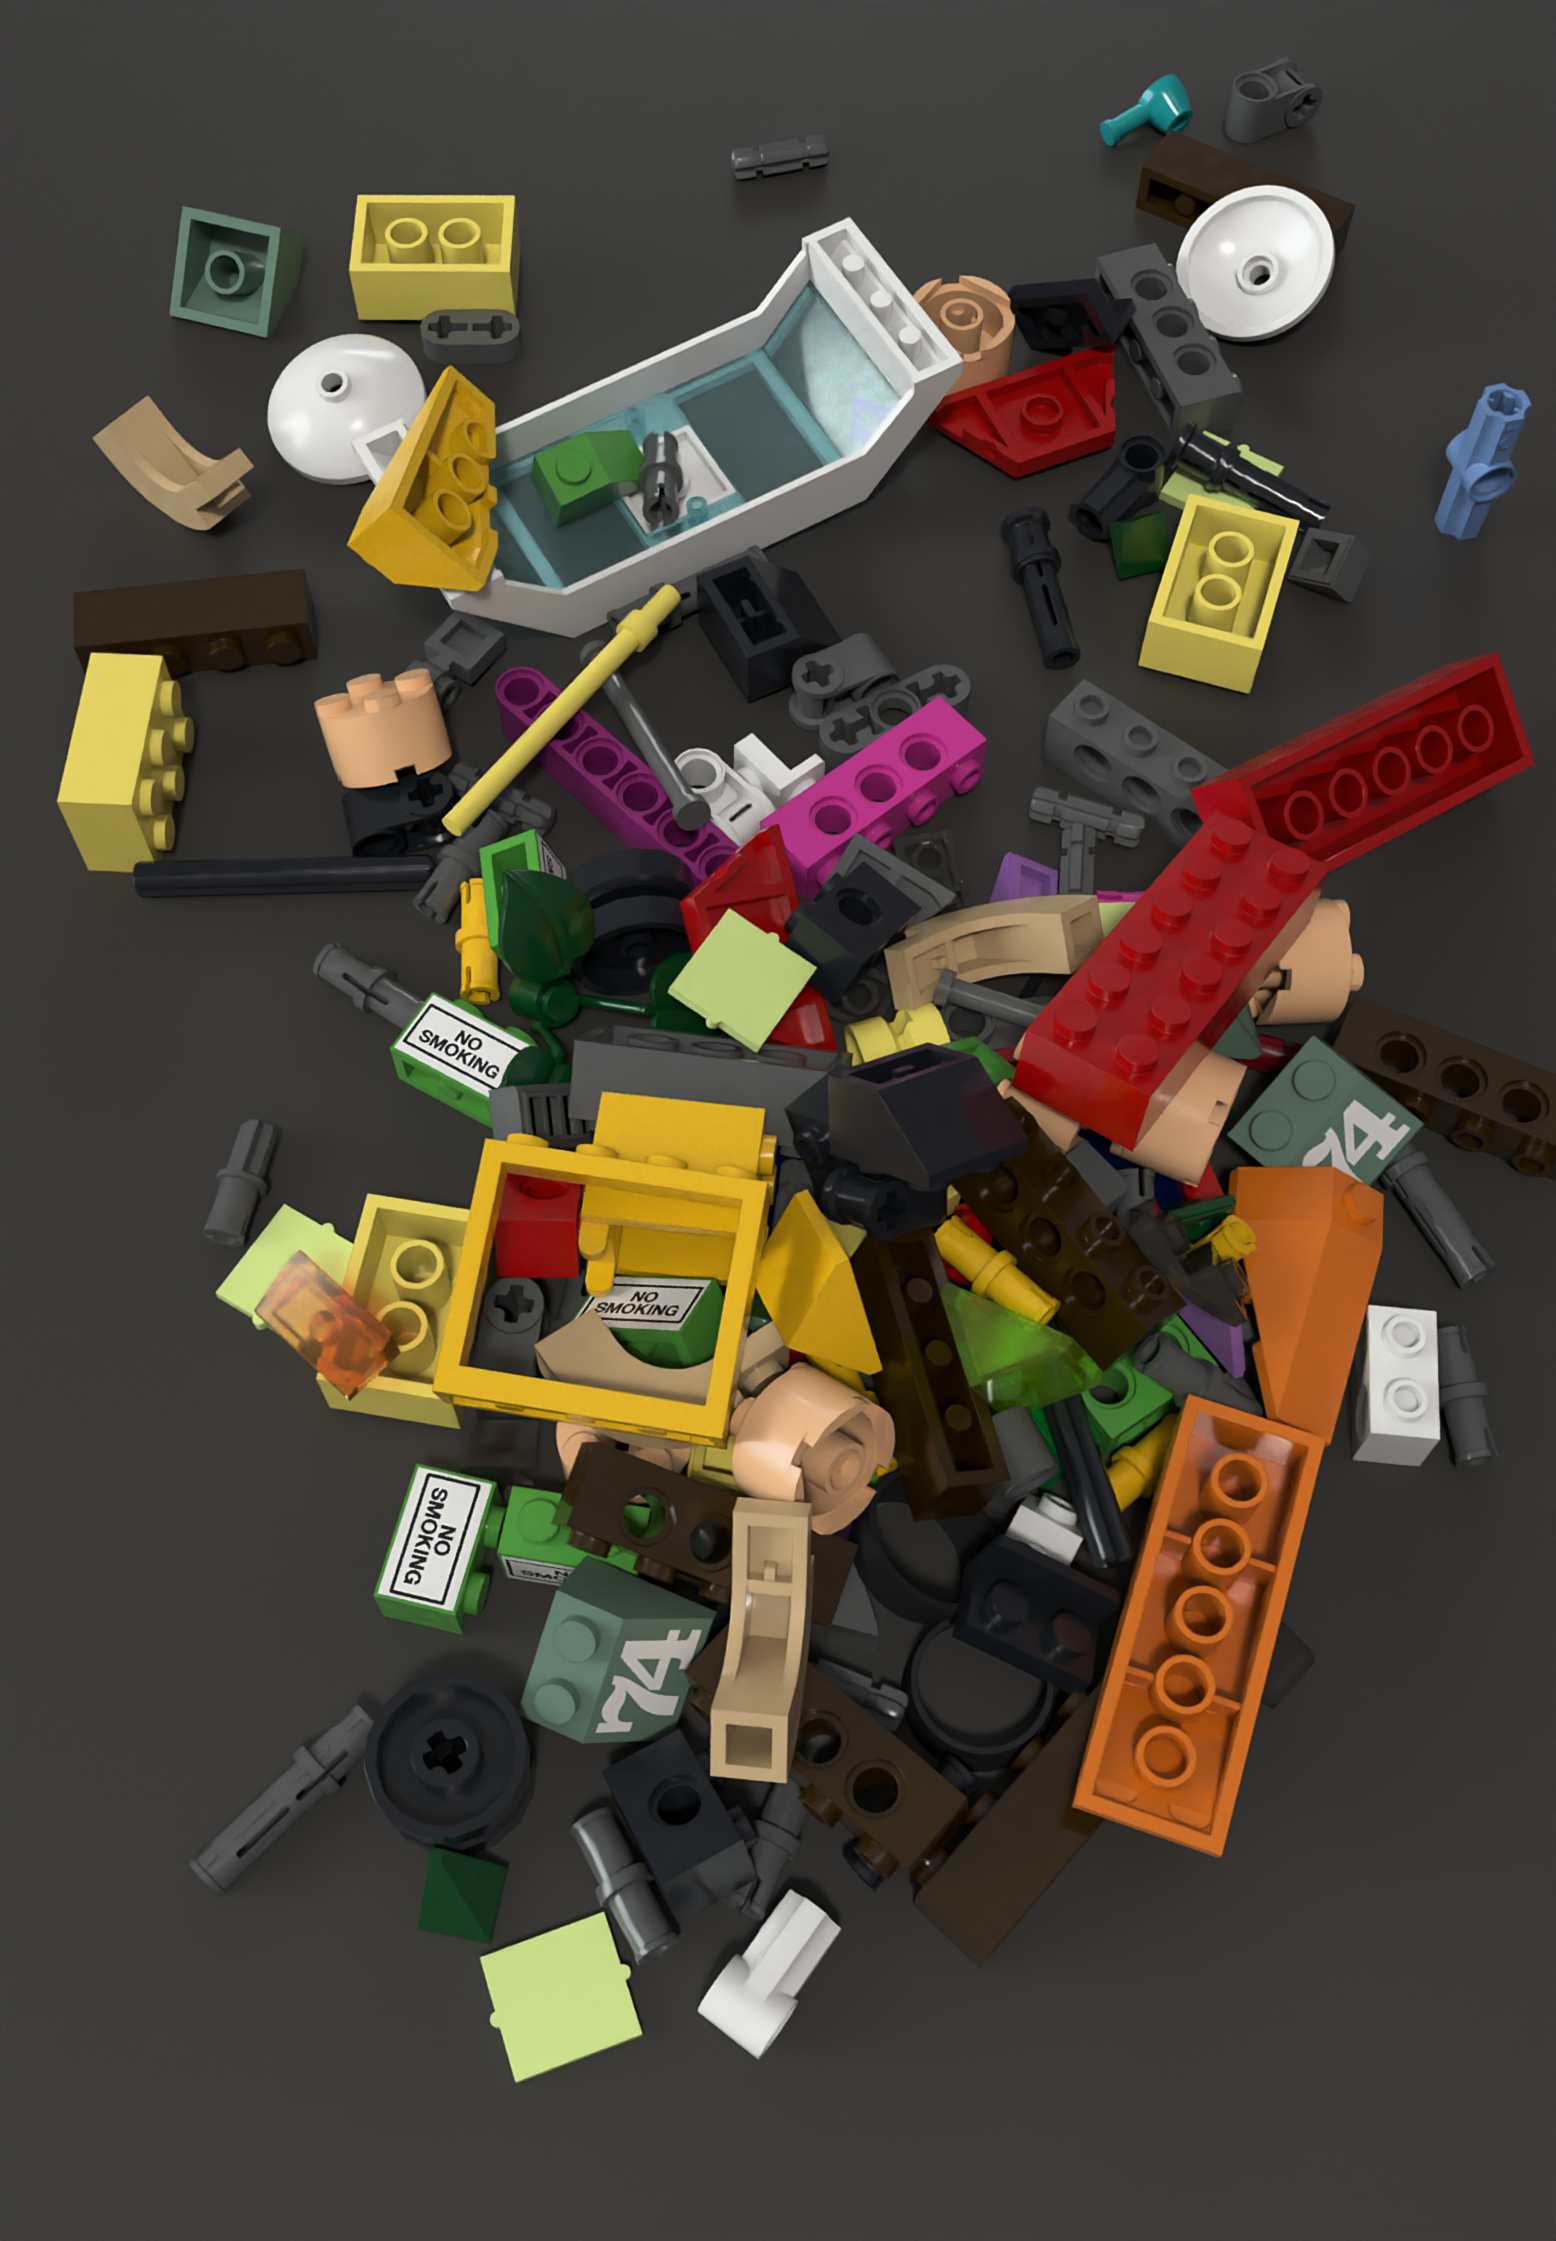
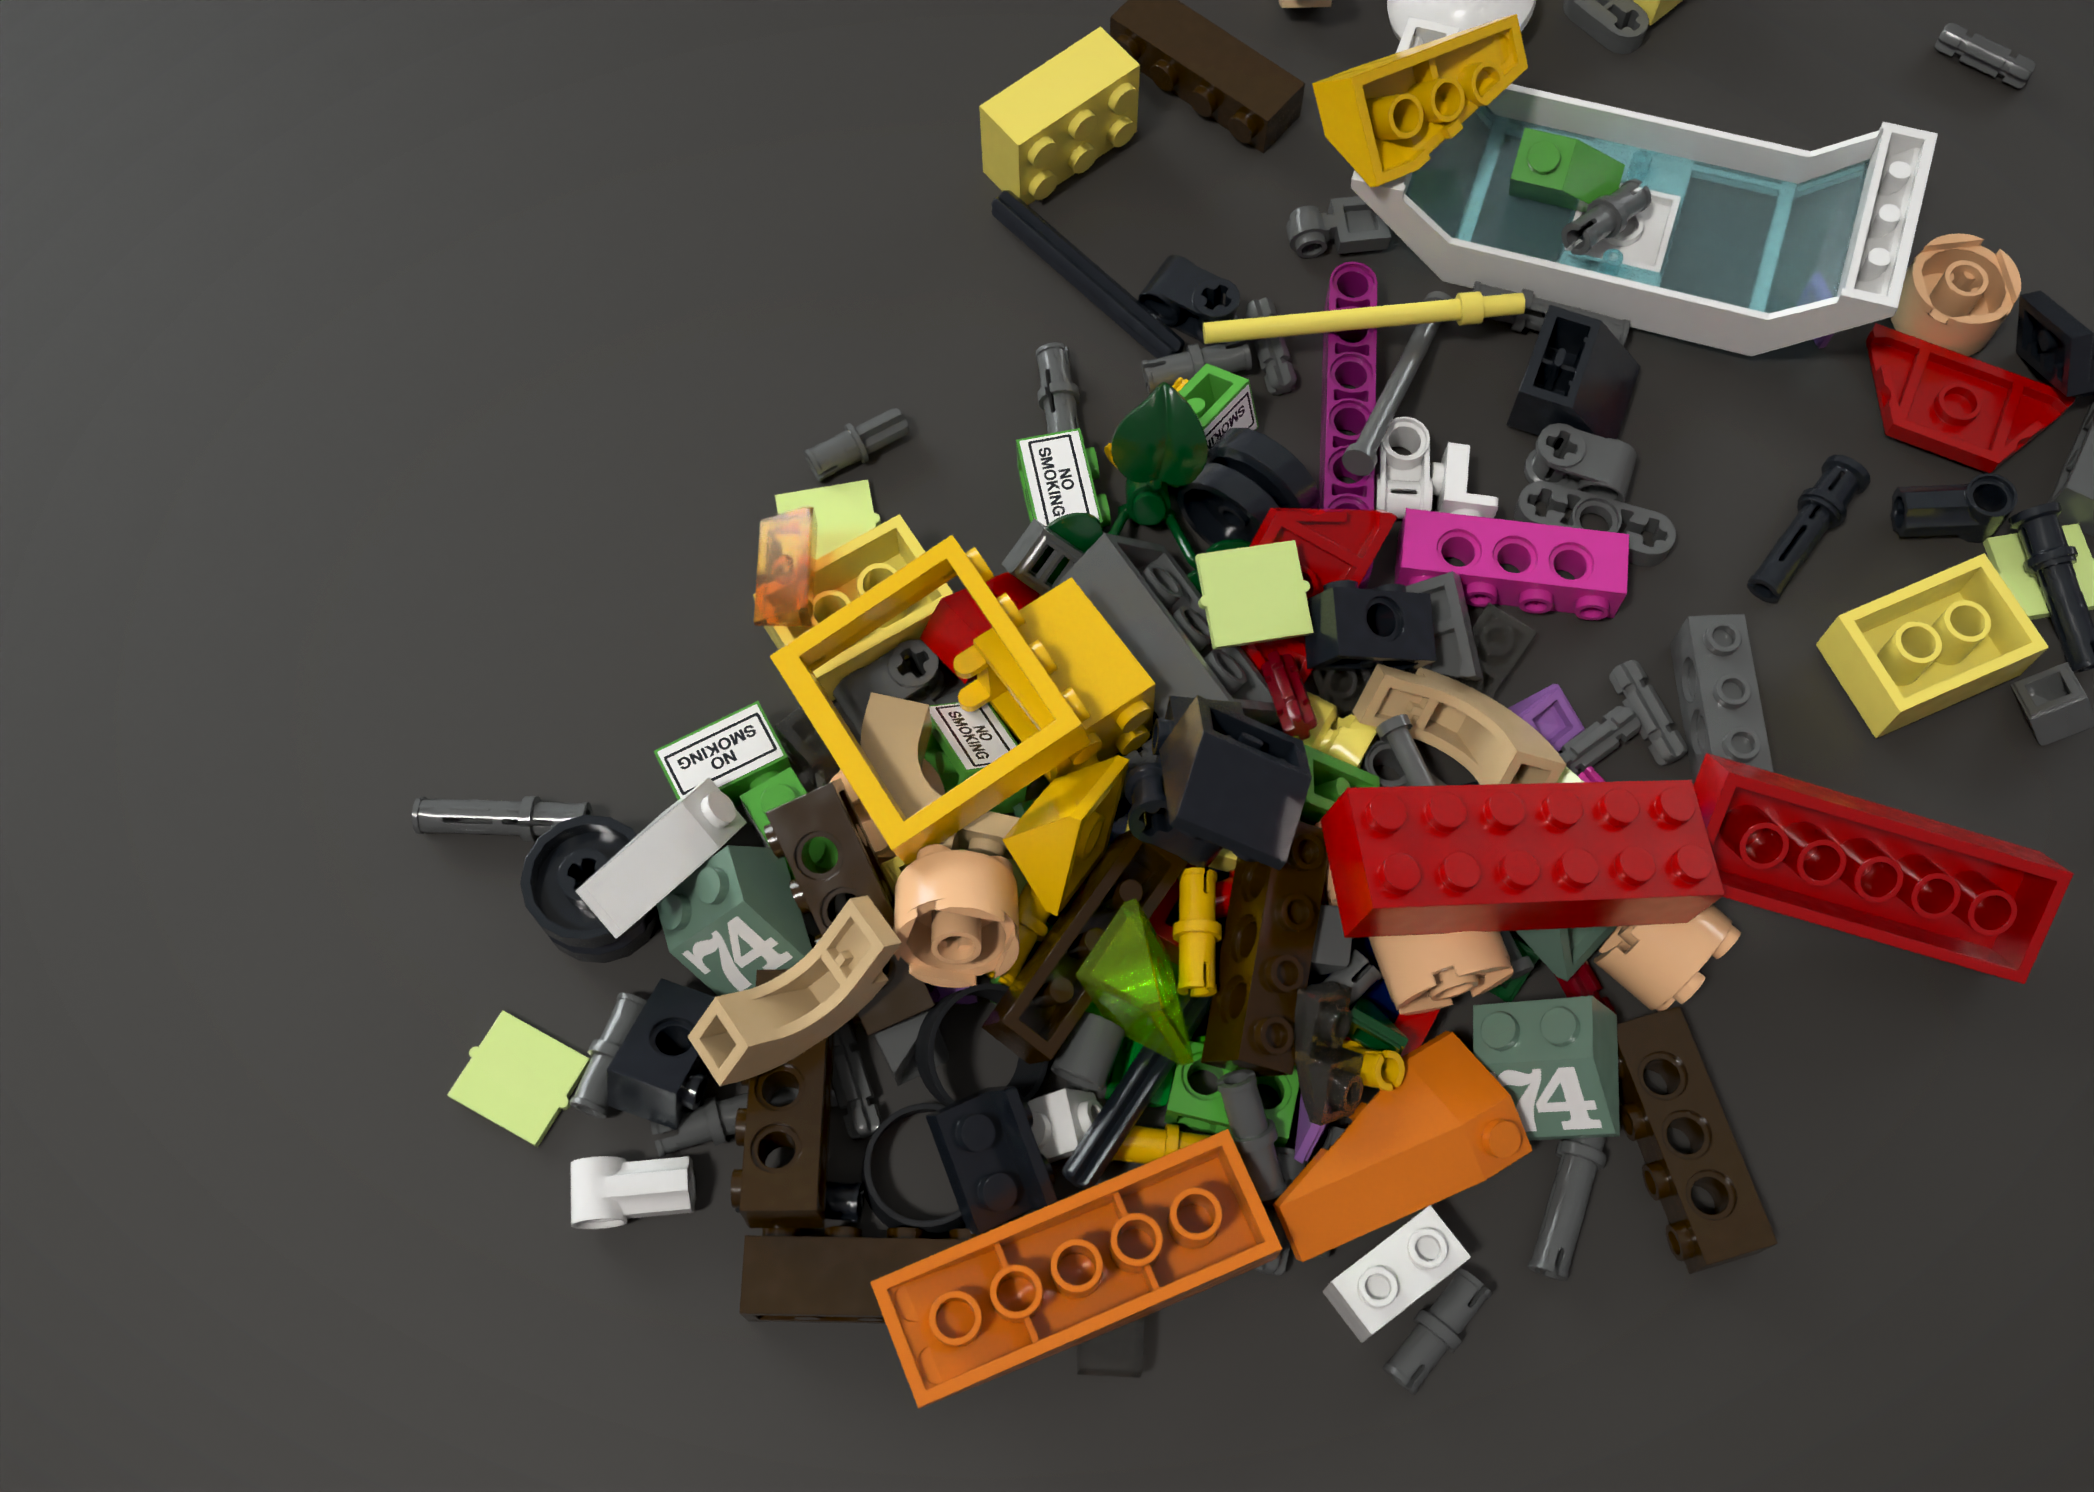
camera: 50 degrees right, 5 degrees up
(383, 728) = (1235, 232): light nougat brick -> none
(461, 1896) = (529, 967): dark green slope -> none
(502, 1659) = (661, 857): none -> white slope
(843, 1035) = (1289, 695): none -> dark red axle
(1140, 544) = (1917, 557): dark green slope -> none

